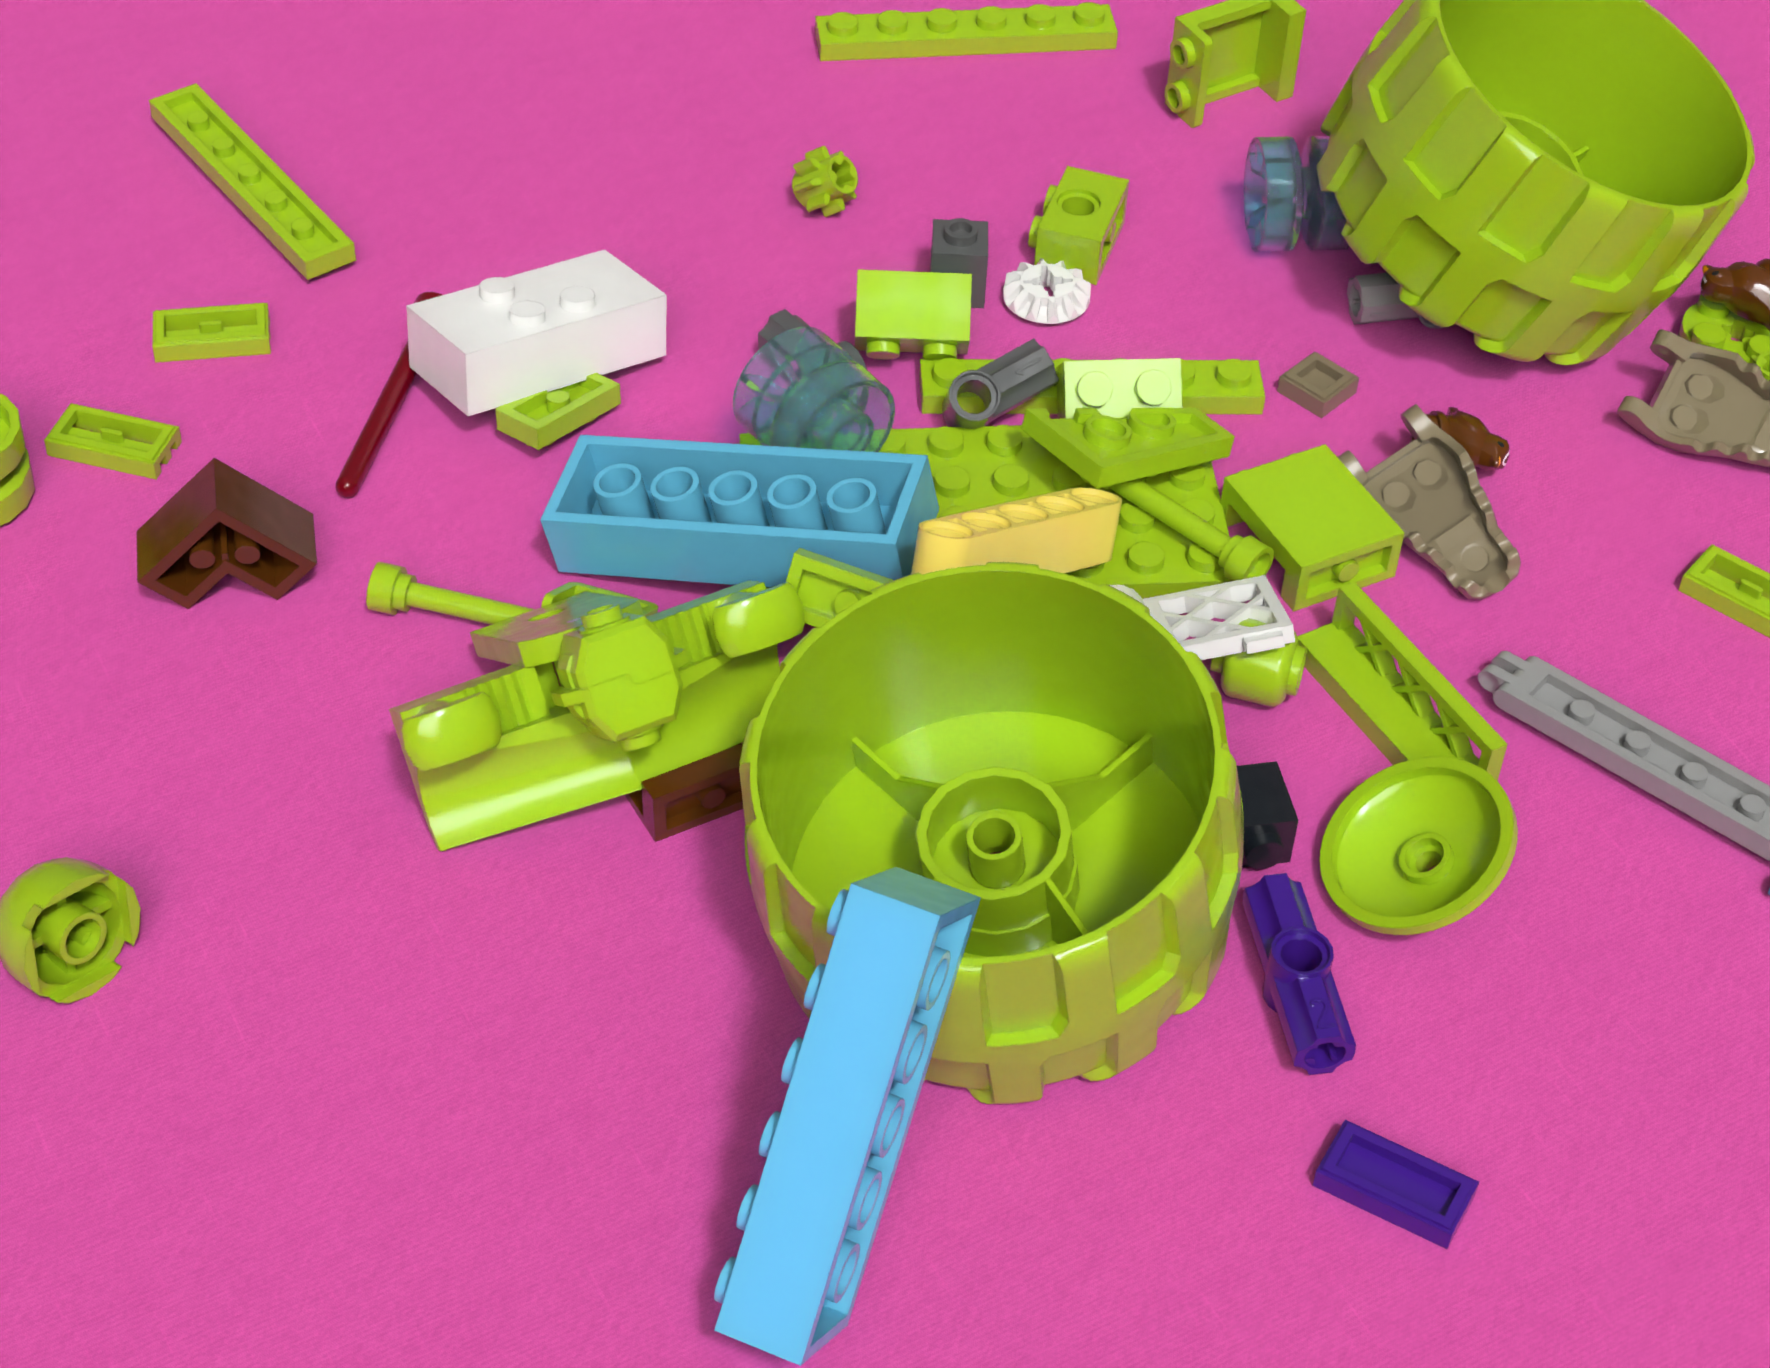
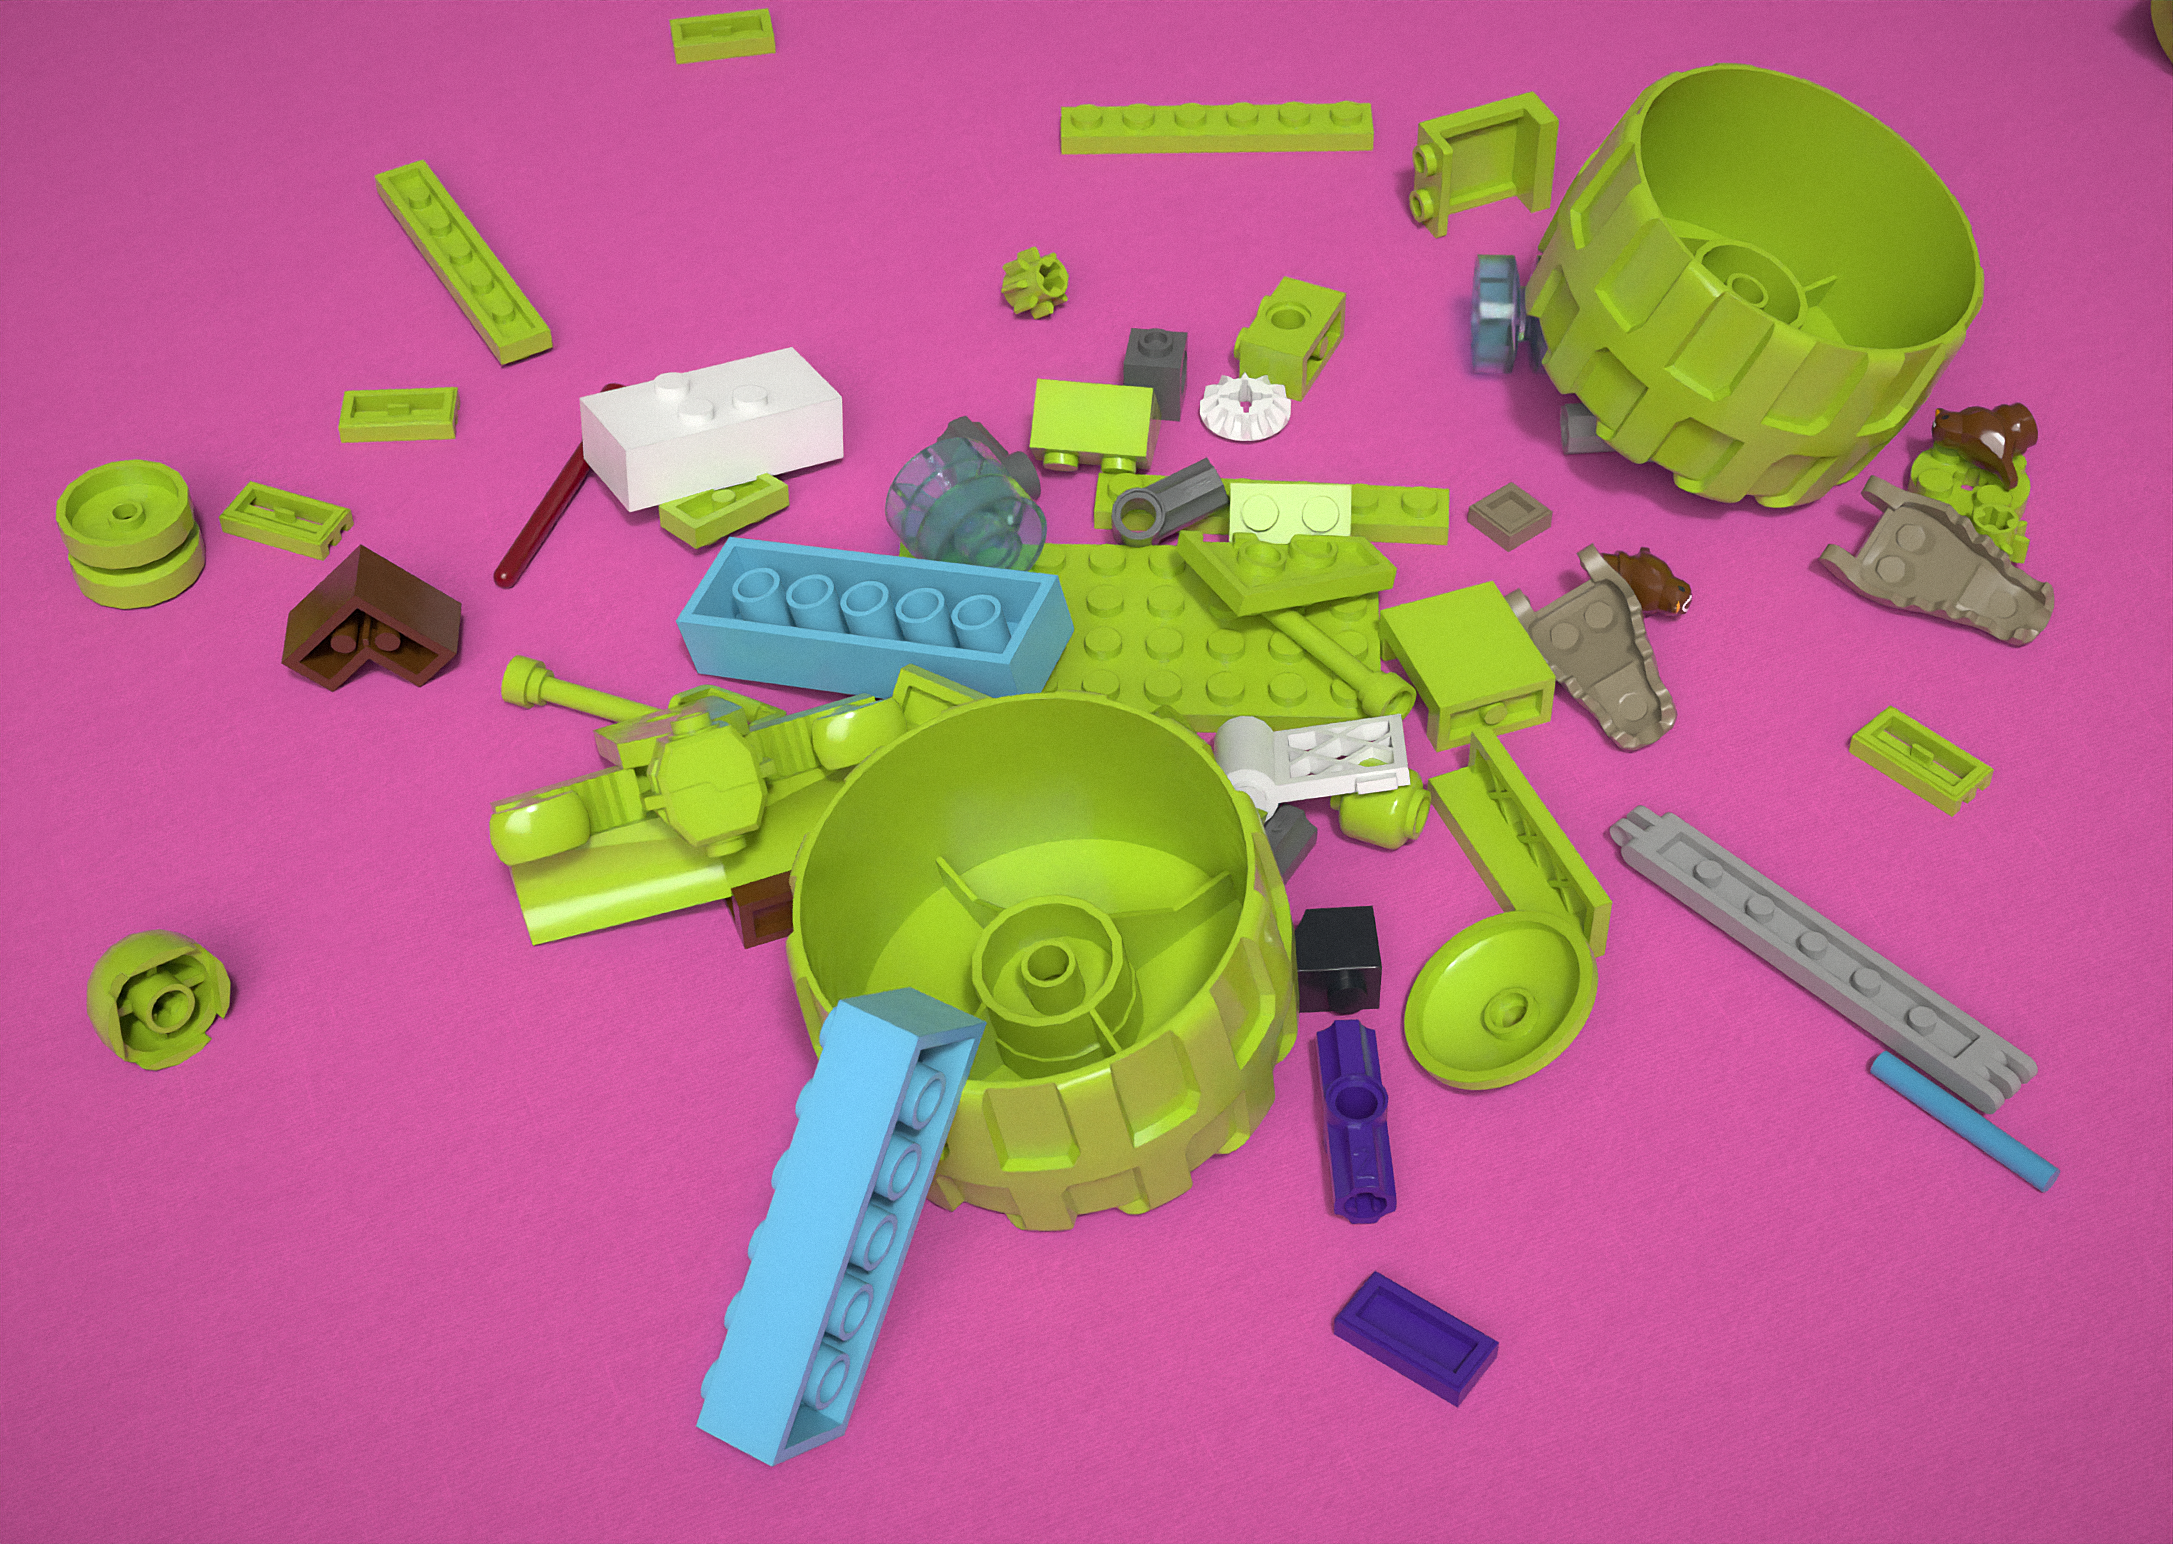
camera: 10 degrees right, 0 degrees up
(1051, 530) = (1147, 663): light yellow beam -> none

